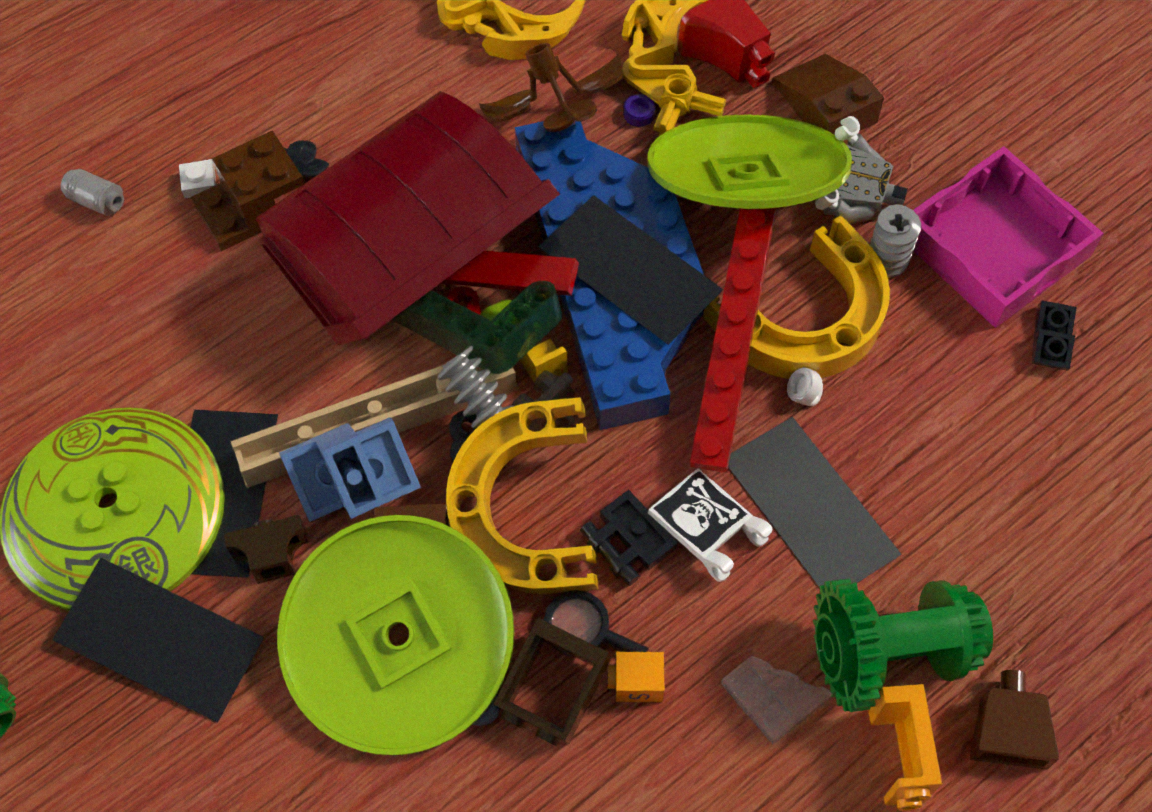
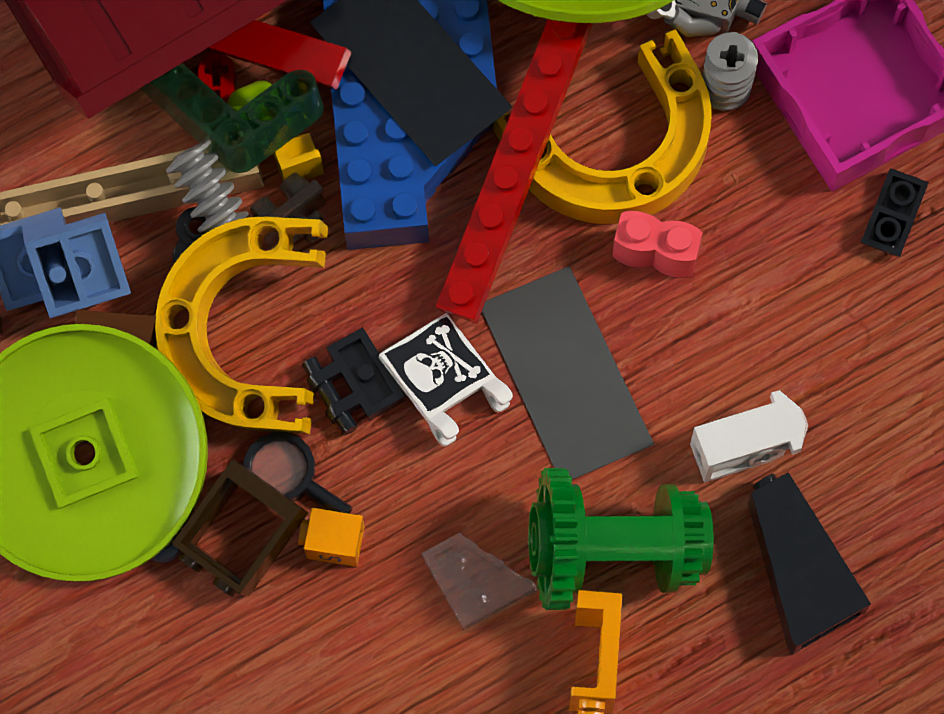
camera: 10 degrees right, 10 degrees up
(805, 387) = (589, 234): white tile -> none
(872, 386) = (648, 242): none -> coral brick
(987, 534) = (749, 438): none -> white piece
(1014, 726) = (723, 649): reddish brown torso -> none
(1063, 638) = (805, 570): none -> black slope

